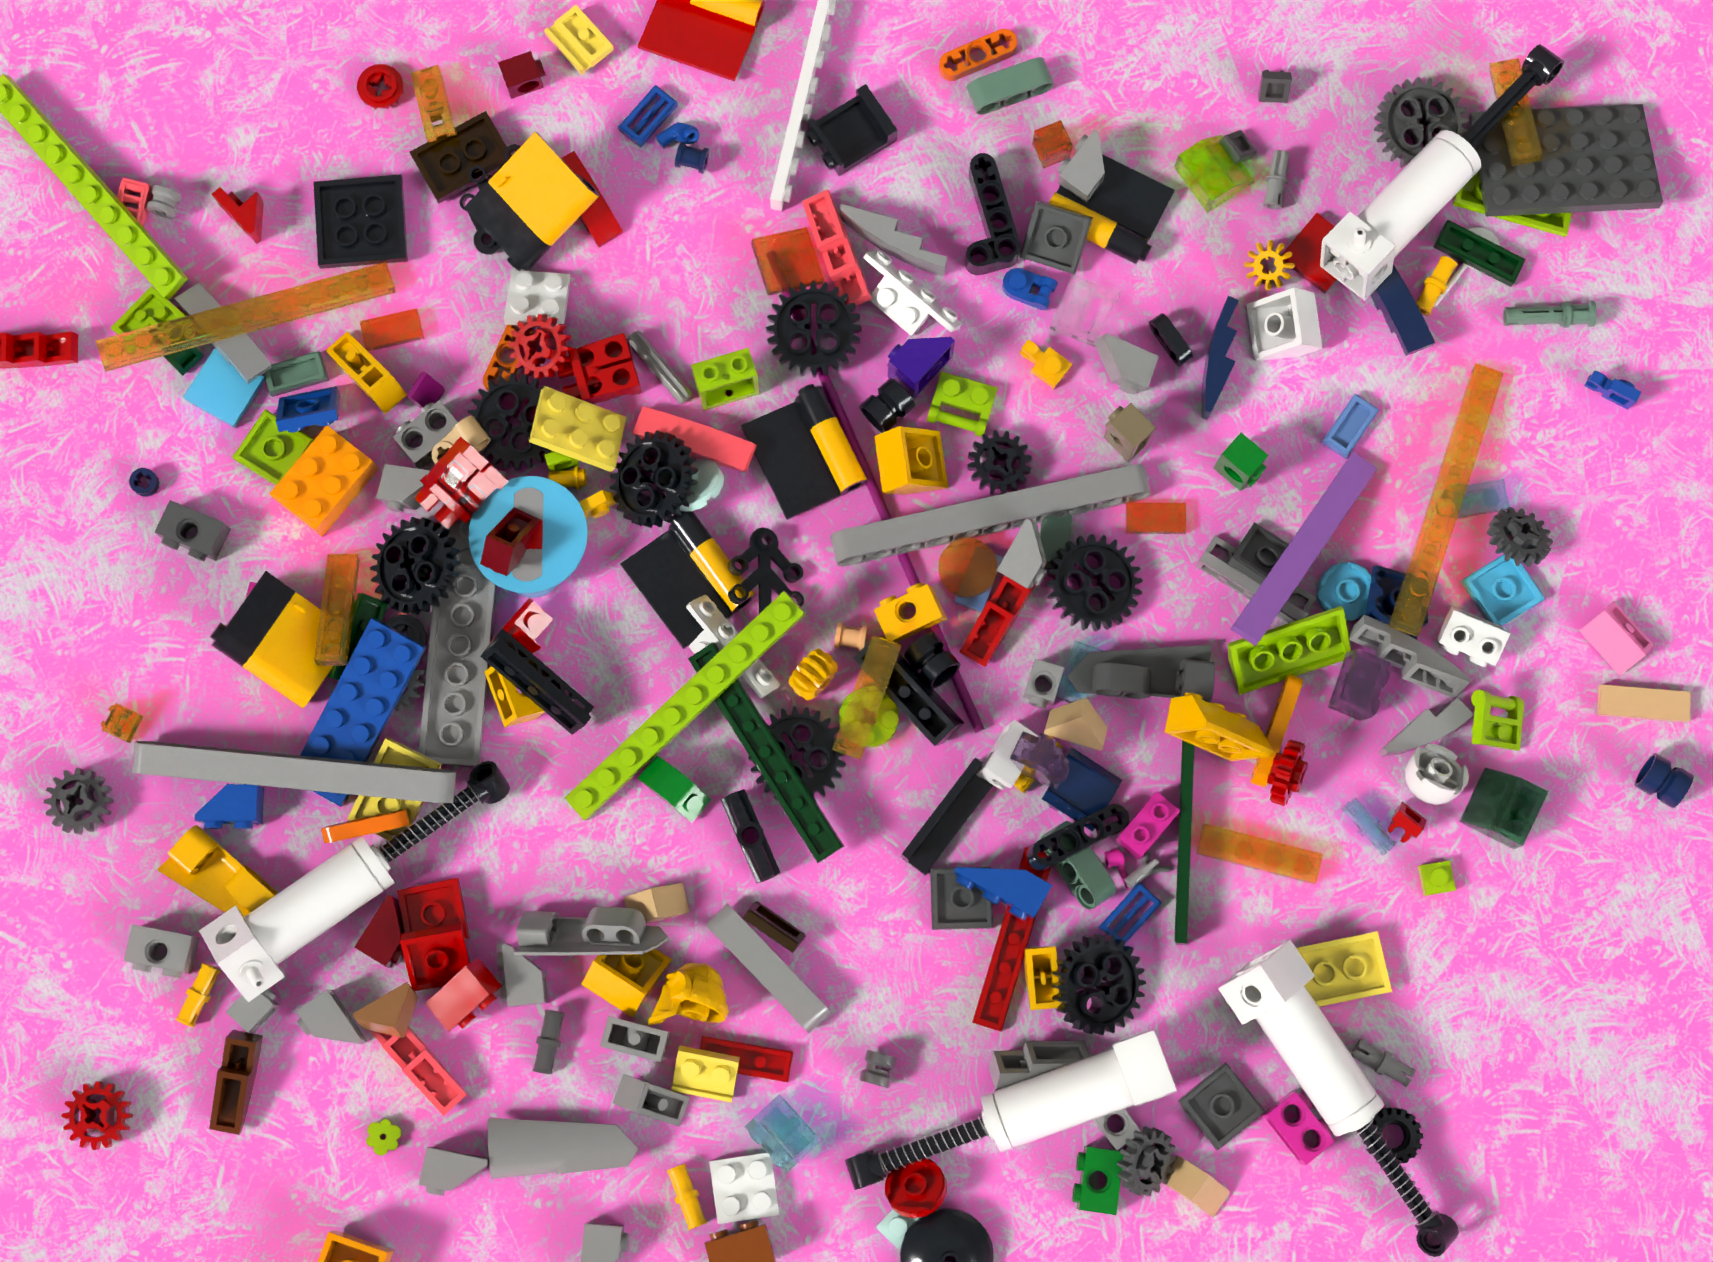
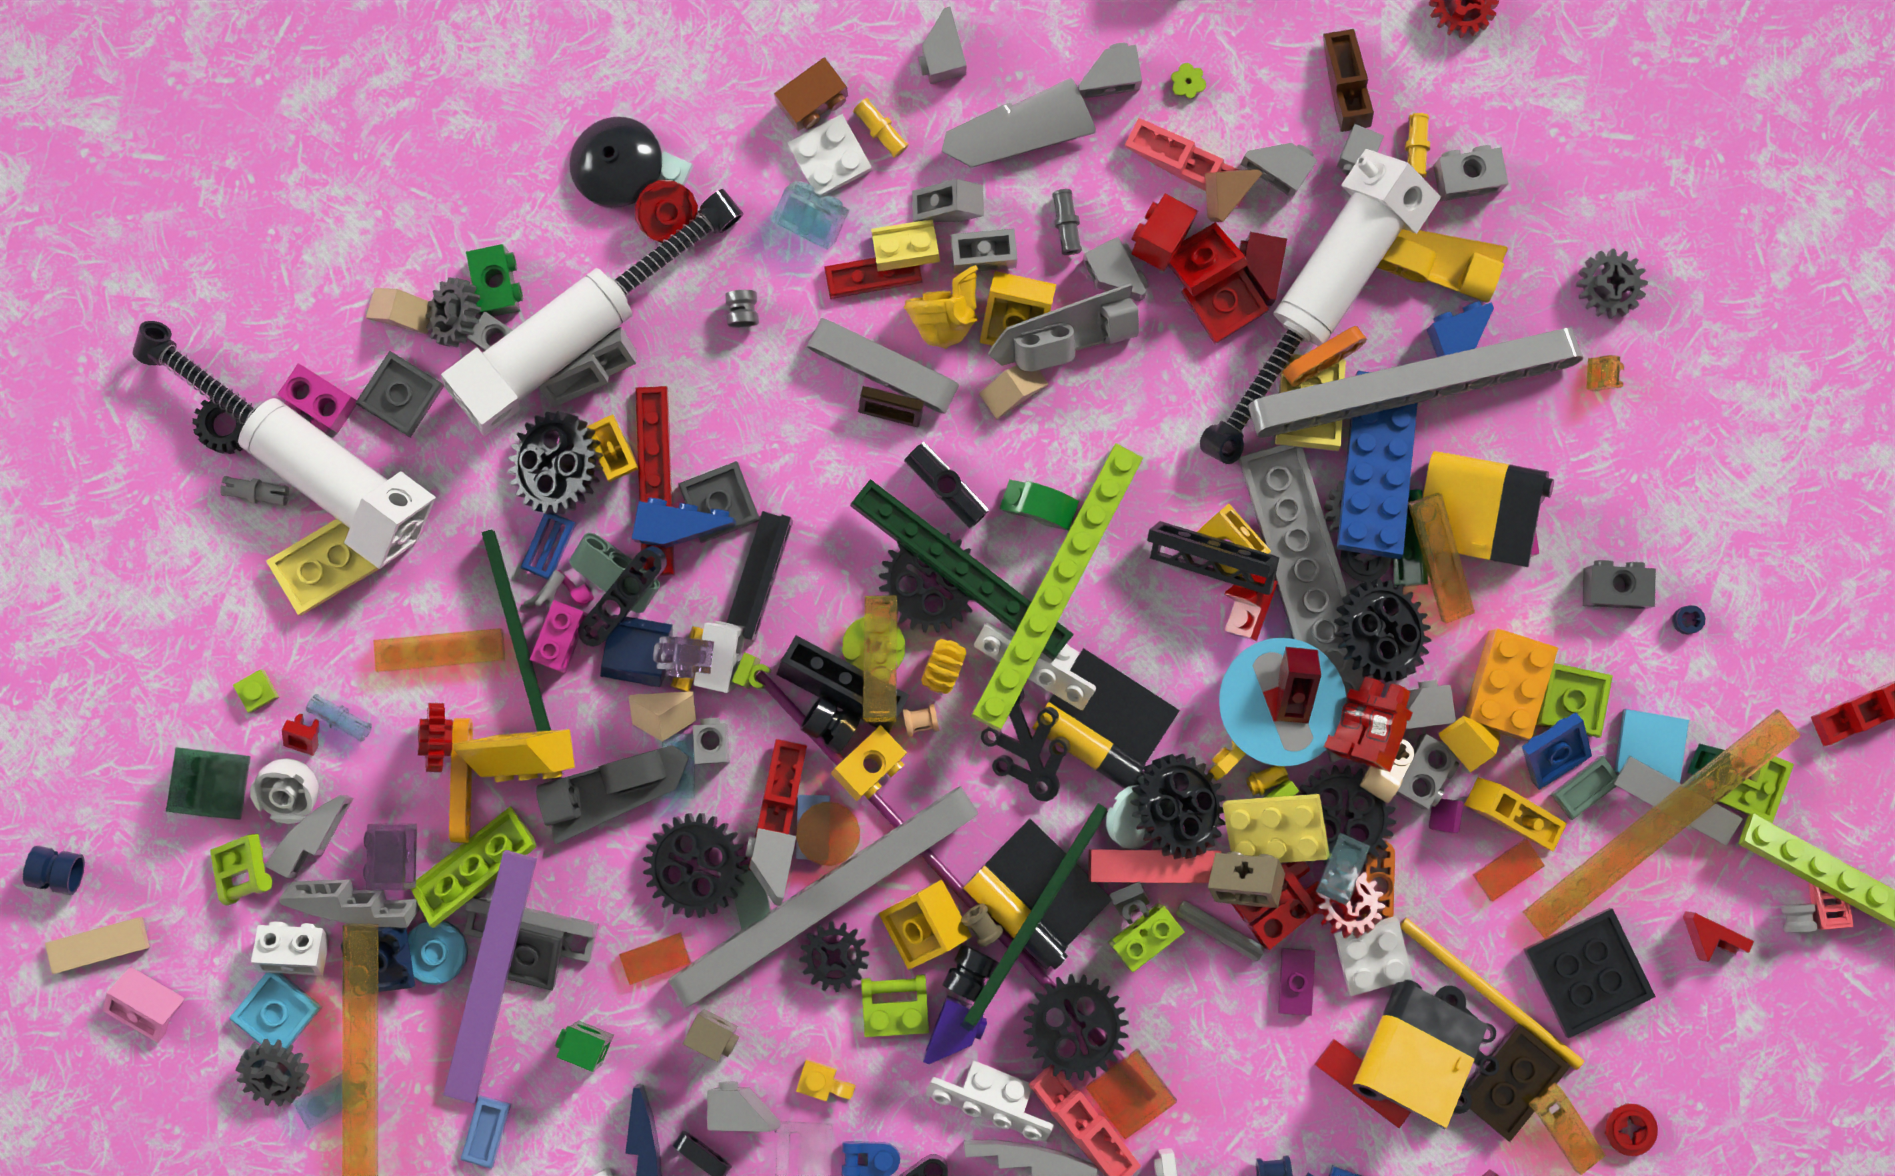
camera: 160 degrees right, 5 degrees up
(378, 439) = (1471, 742): none -> yellow slope
(450, 235) = (1491, 993): none -> yellow piece
(534, 372) = (1343, 868): none -> clear light blue plate
(610, 303) = (1296, 981): none -> magenta plate
(613, 381) = (1246, 879): none -> dark tan brick
(726, 418) = (1130, 899): none -> dark grey tile
(814, 427) = (1034, 918): none -> dark green tile
(862, 441) = (982, 925): none -> dark tan bush
(988, 734) = (747, 670): none -> lime tile

